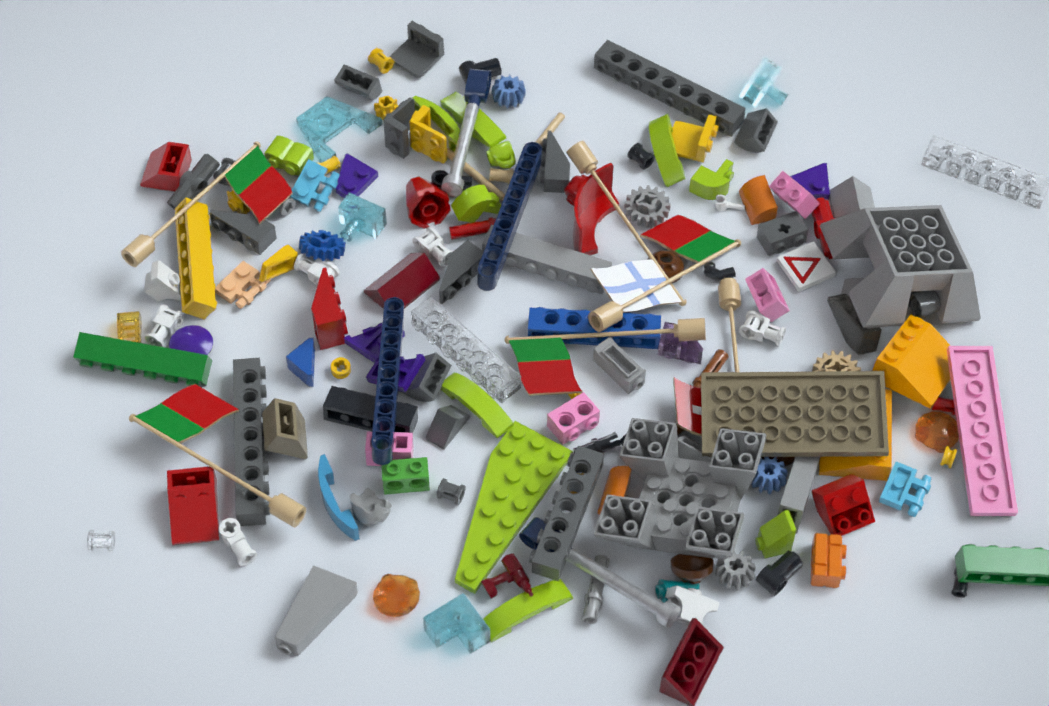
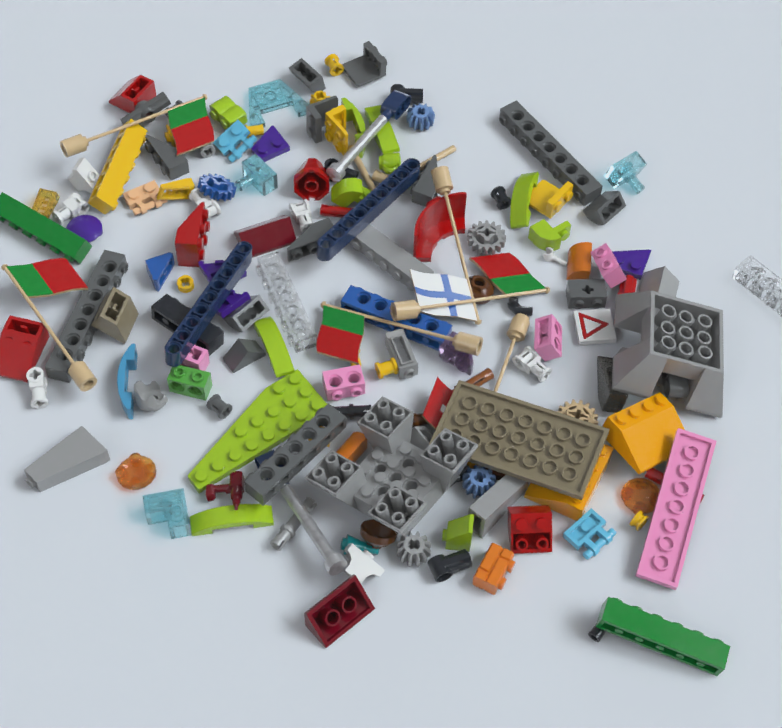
camera: 20 degrees right, 0 degrees up
(610, 386) = (386, 368): none -> yellow bush

